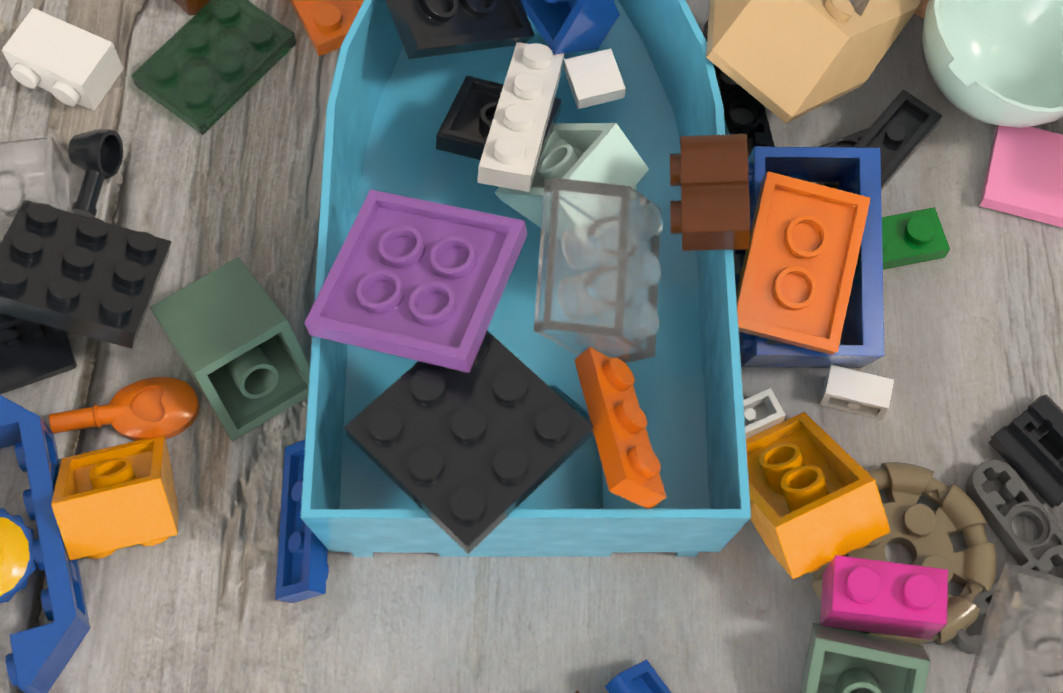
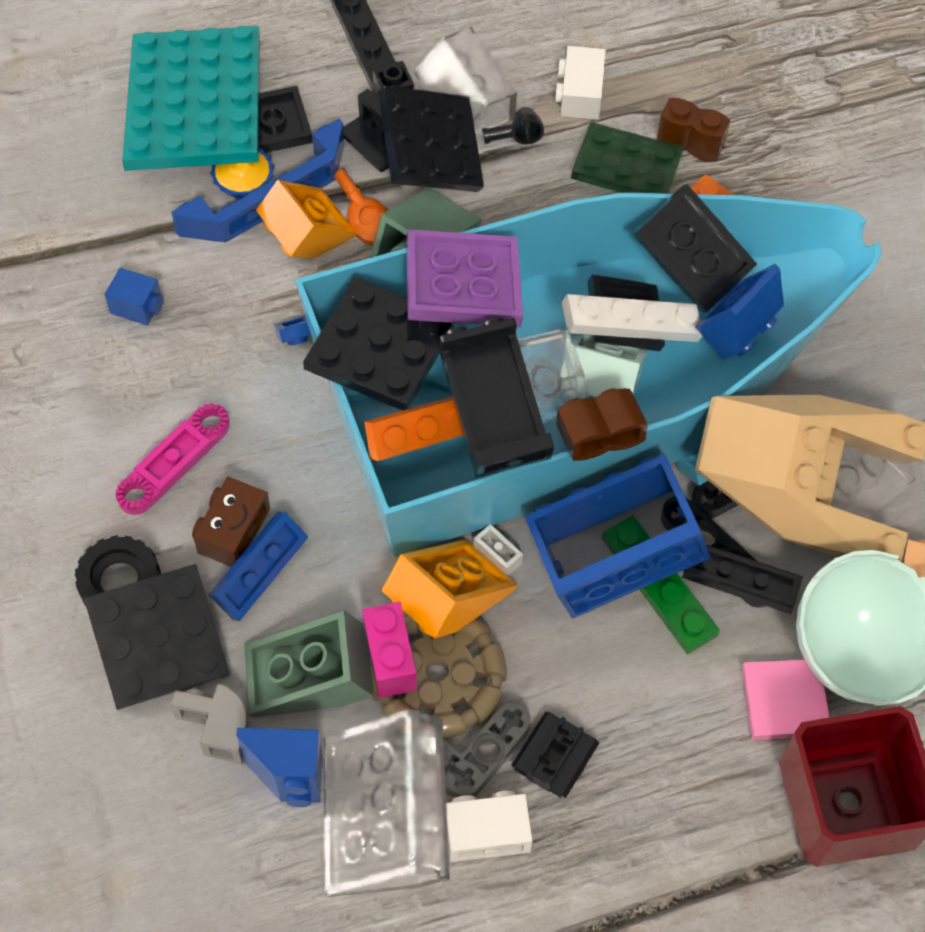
camera: 70 degrees right, 5 degrees down
(594, 78) = (693, 361): white tile -> none
(637, 307) = (494, 397): none -> black panel
(800, 263) = (591, 509): orange plate -> none
(857, 392) = (547, 615): white piece -> none

